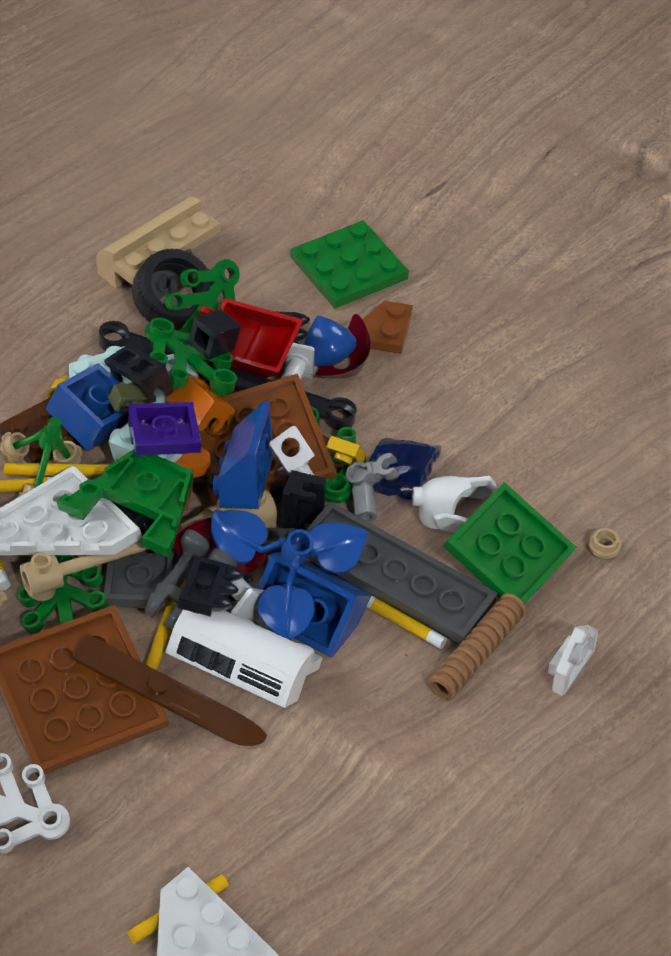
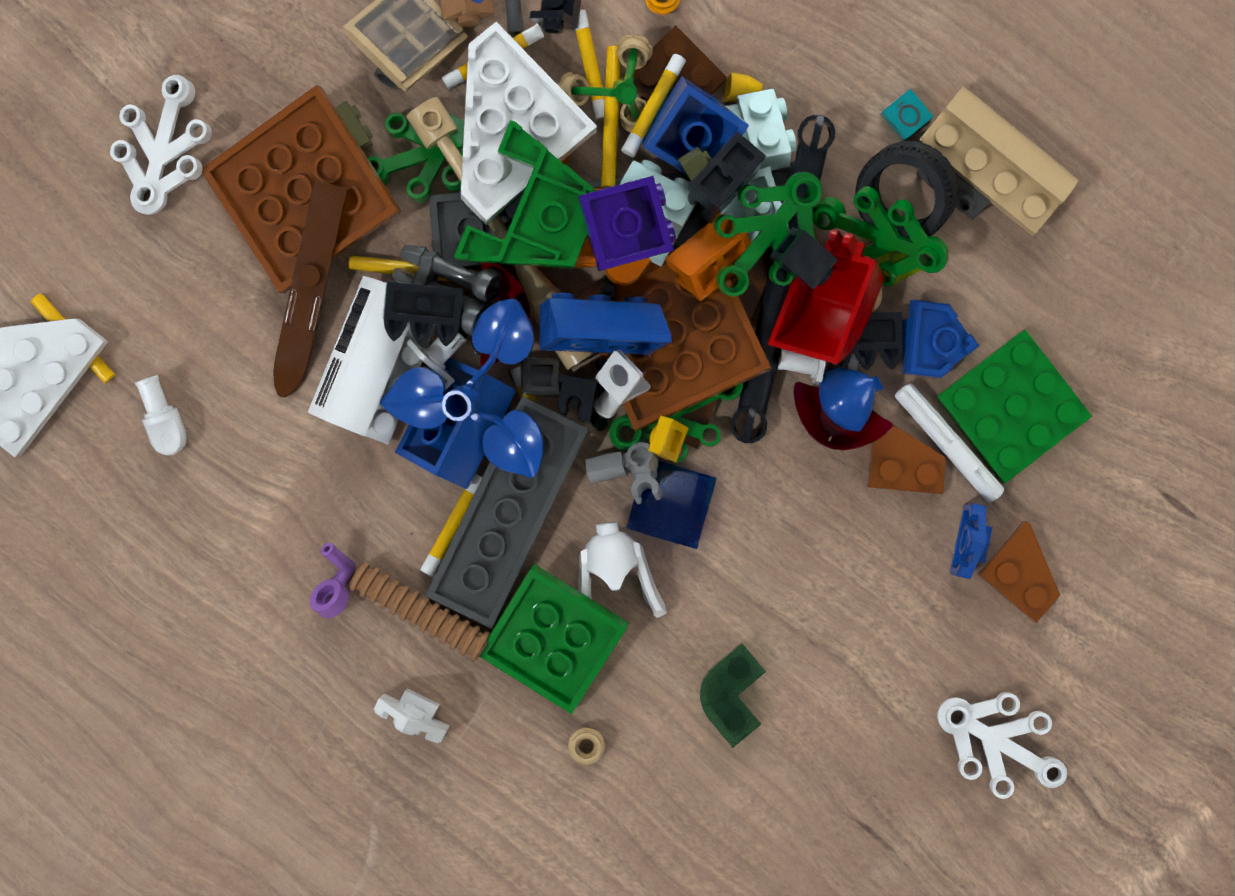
camera: 85 degrees right, 40 degrees up
(68, 434) = (653, 105): none -> yellow bar
(109, 299) = (907, 115): none -> teal tile
(273, 831) = (161, 421): none -> white arm
(289, 296) = (933, 339): none -> blue plate
(374, 297) = (949, 442): none -> white axle
(450, 708) = (331, 595): none -> medium lavender plate
(451, 287) = (971, 541): none -> blue plate
(479, 271) = (1022, 573): none -> dark orange wing
(564, 450) = (721, 690): none -> clear green plate
(590, 315) = (996, 739): none -> white plant

